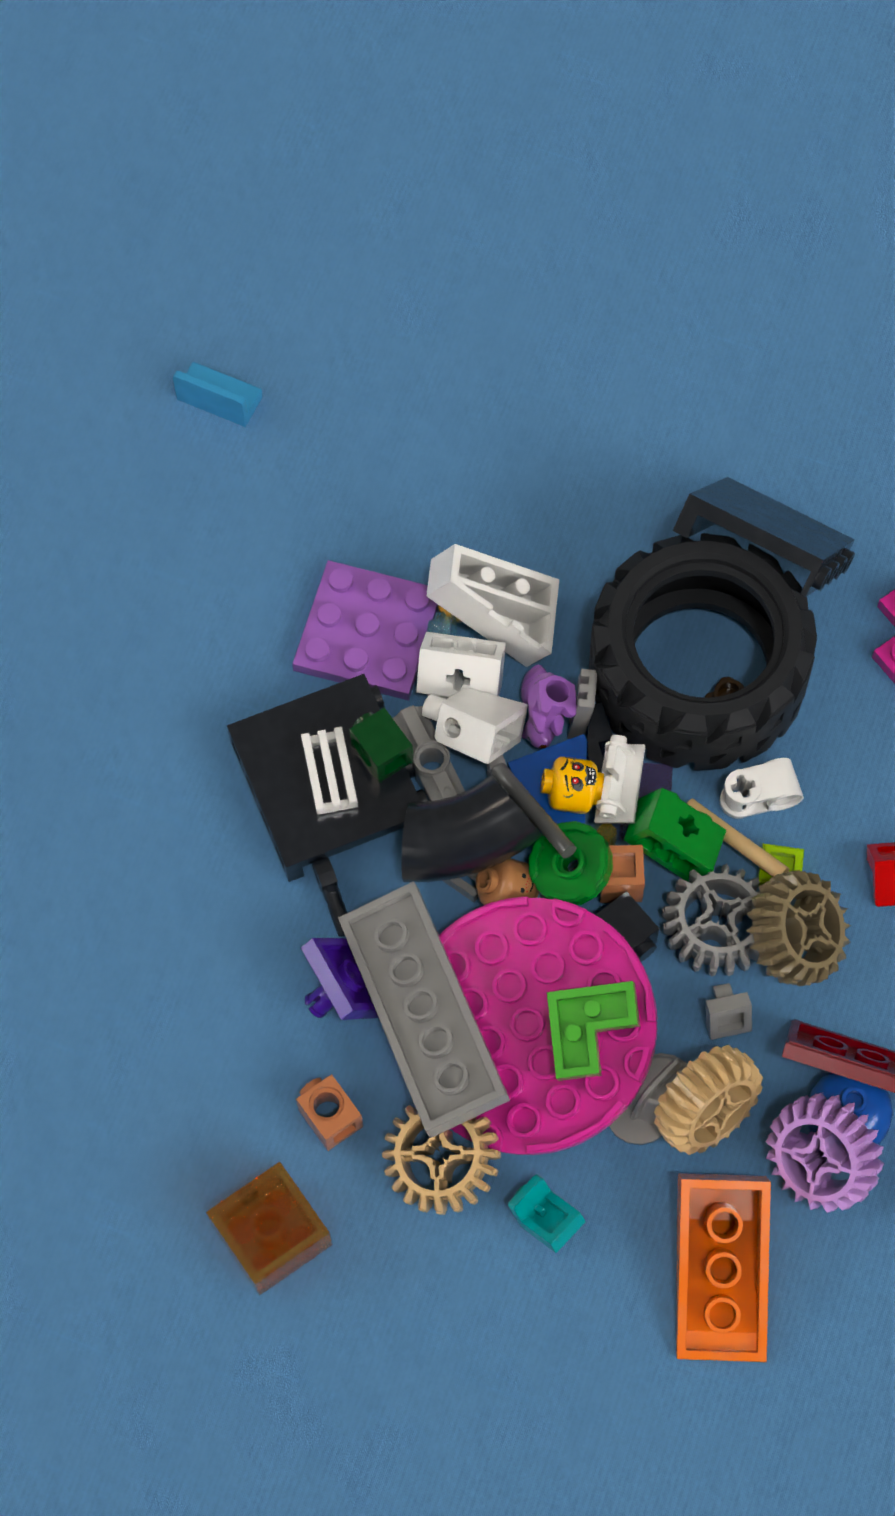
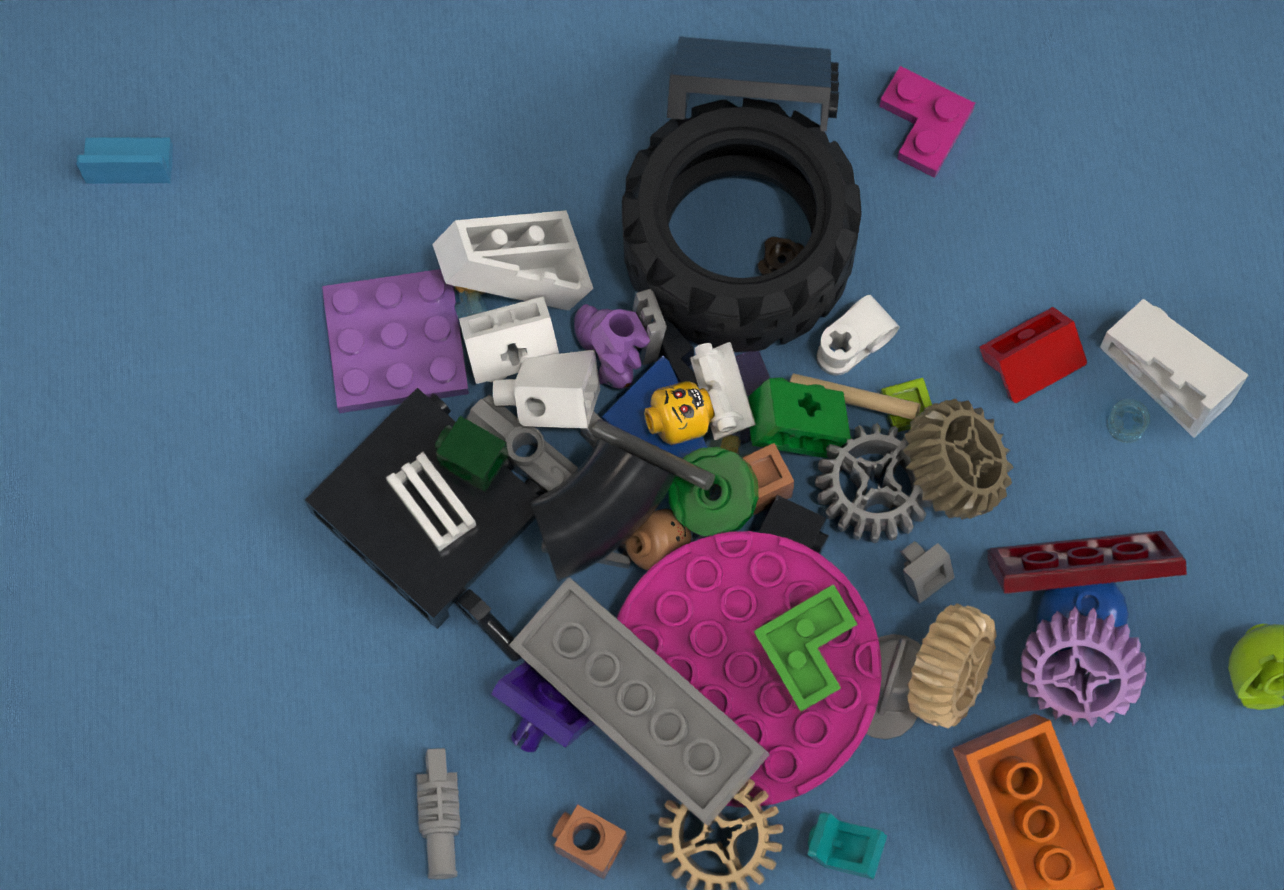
camera: 25 degrees left, 5 degrees up
(214, 1033) = (438, 814): none -> light grey hinge

